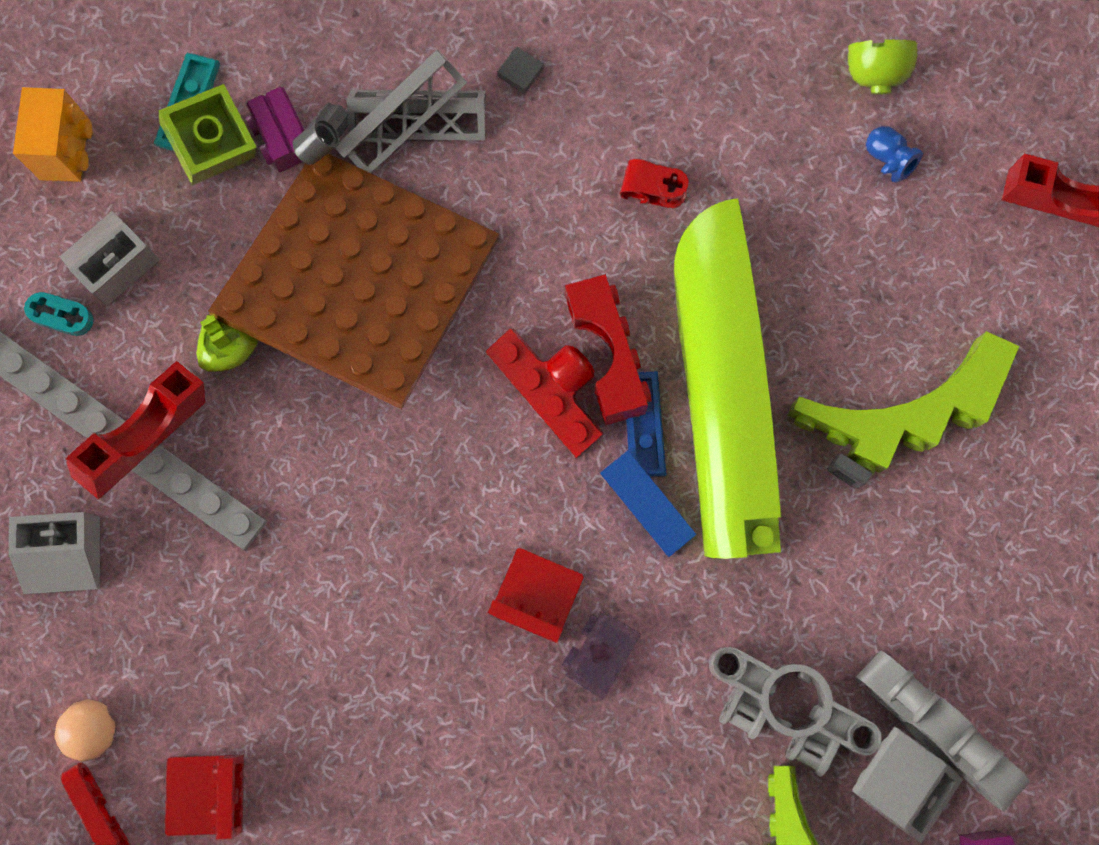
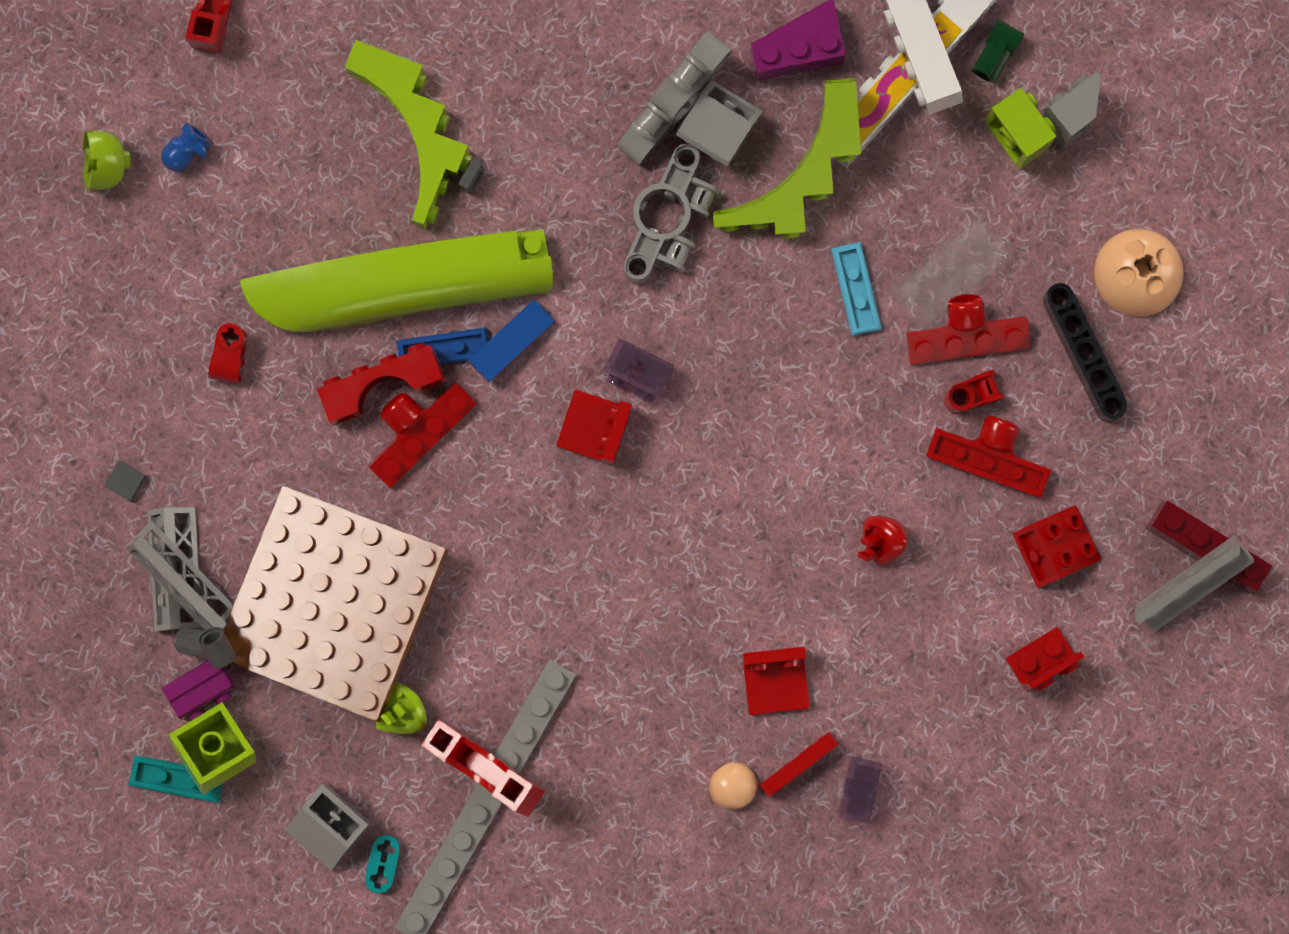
camera: 90 degrees left, 5 degrees up
(52, 134) = (222, 887): light orange brick -> none
(55, 552) = (591, 828): light grey slope -> none

